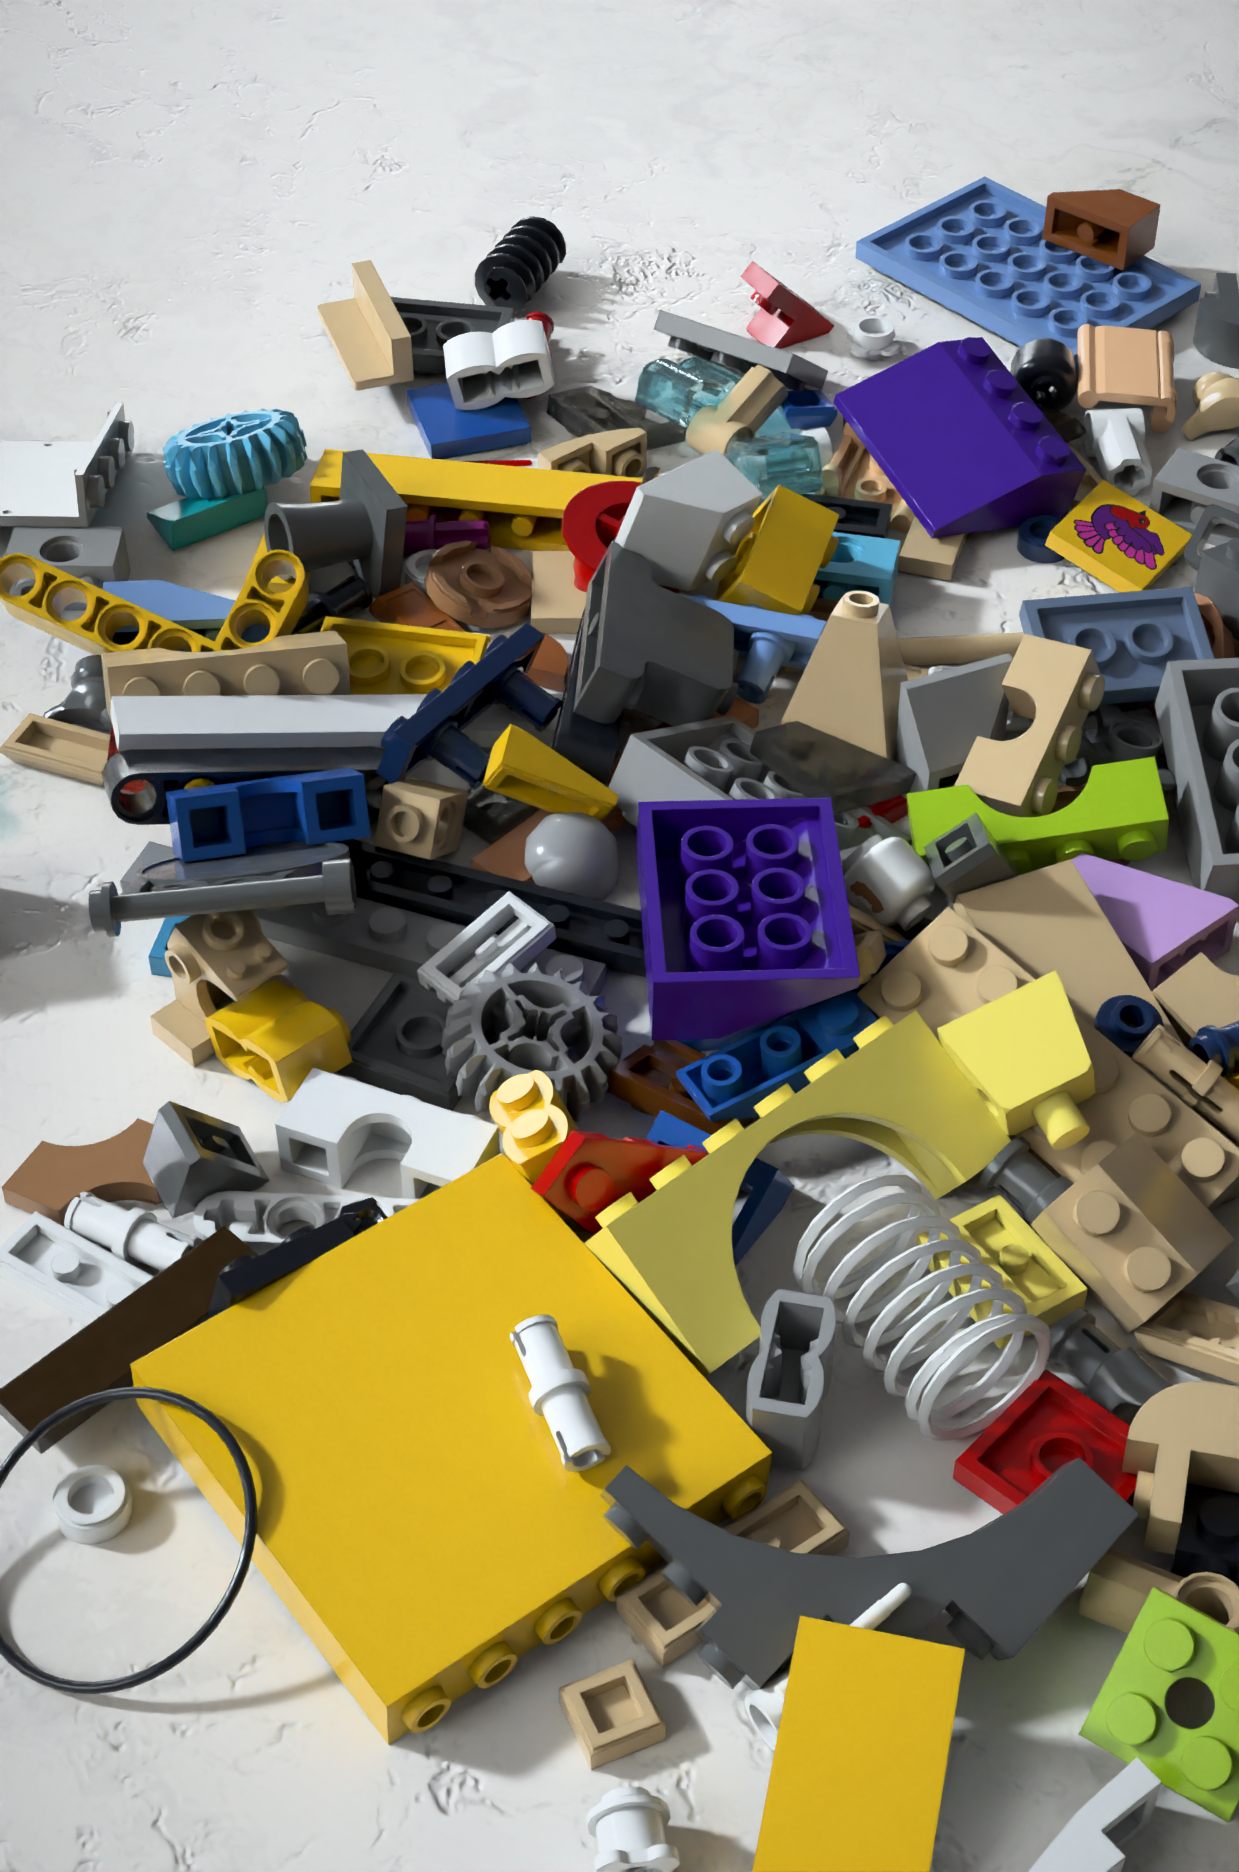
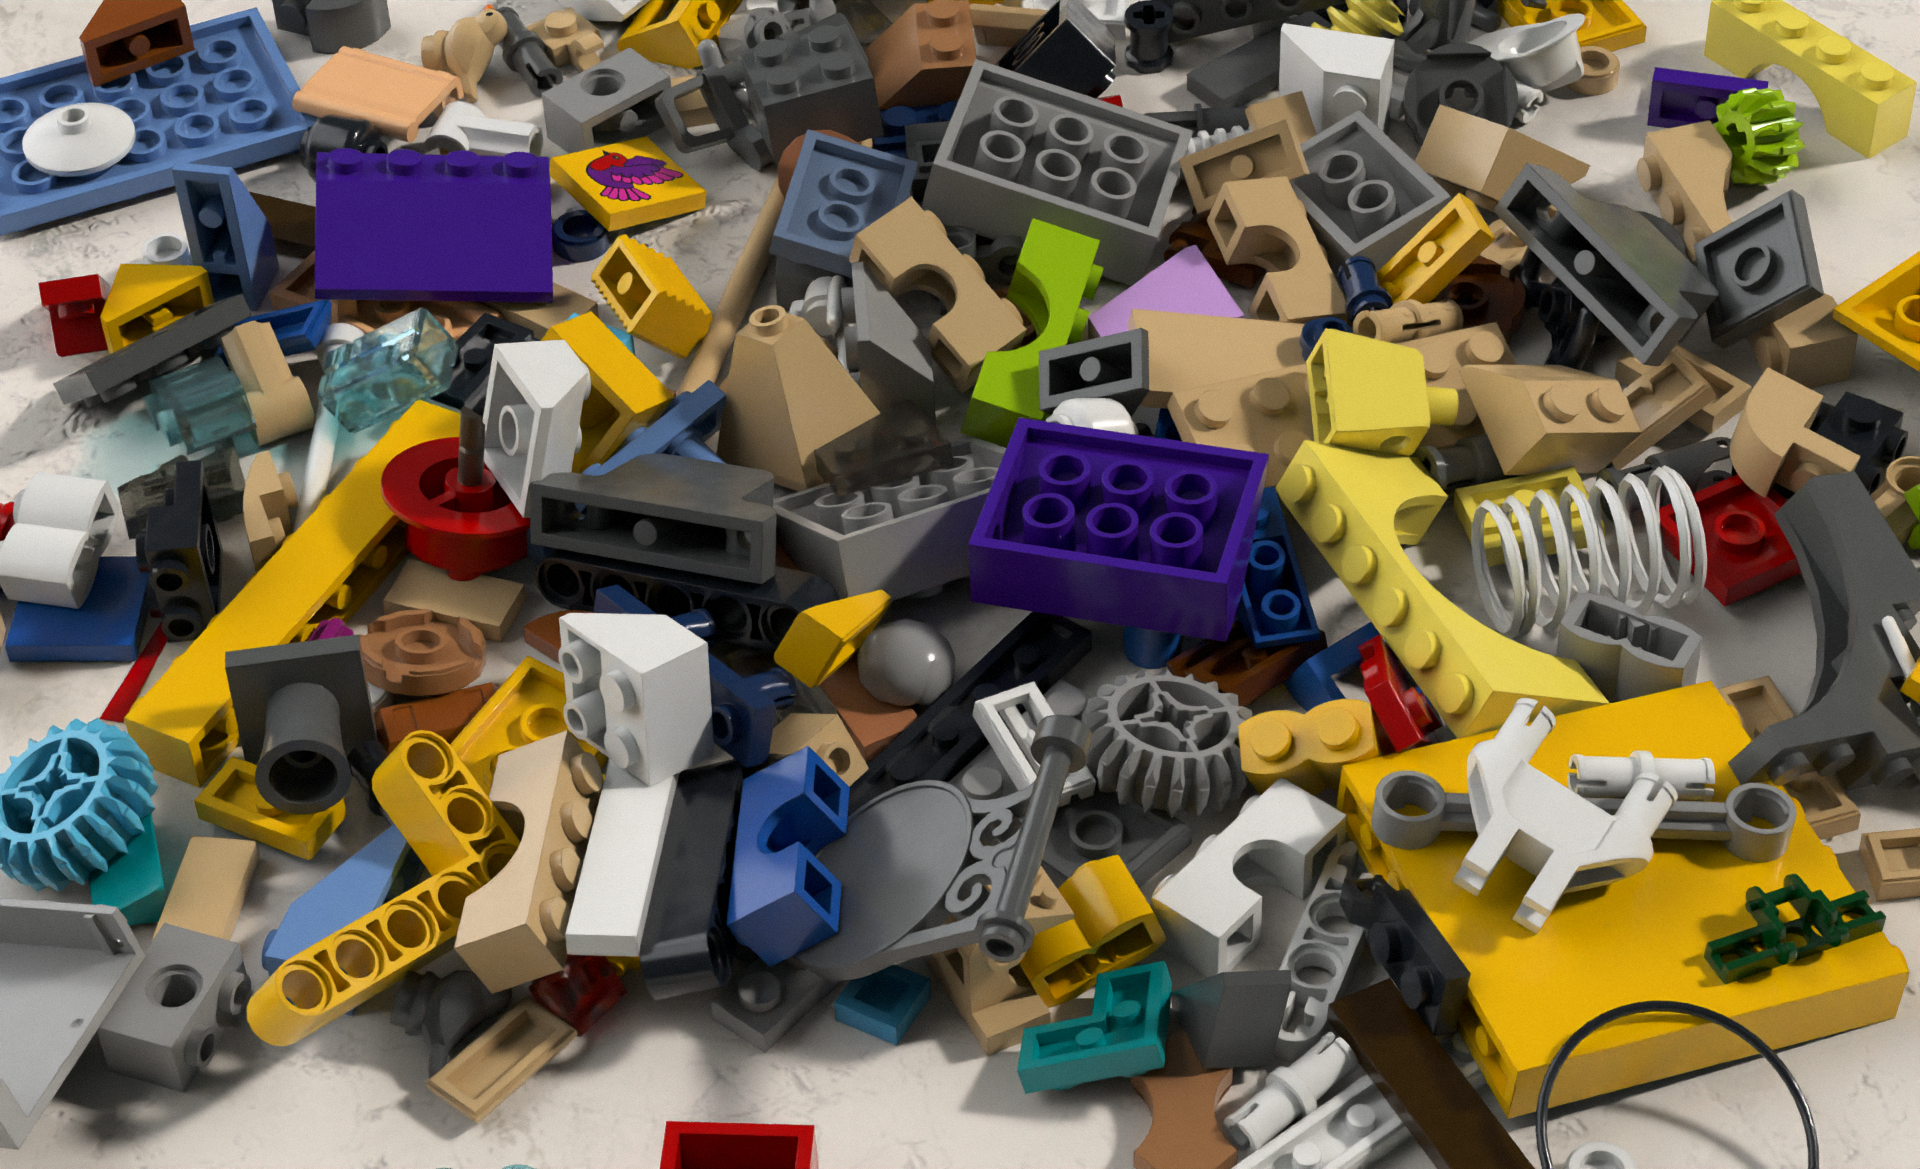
camera: 70 degrees left, 0 degrees up
(146, 1076) = (1118, 1039): none -> teal plate
(194, 558) = (211, 885): none -> tan tile
(370, 1541) = (1812, 908): none -> dark green piece
(383, 660) = (637, 691): none -> white slope
(421, 1298) = (1547, 825): none -> white connector
(491, 1364) = (1683, 821): none -> light grey piece
(508, 418) = (183, 556): none -> black plate
(805, 332) = (150, 298): none -> yellow slope
(873, 328) = (226, 232): none -> medium blue slope
(953, 582) = (652, 297): none -> yellow brick
(972, 249) = (79, 139): none -> white dish

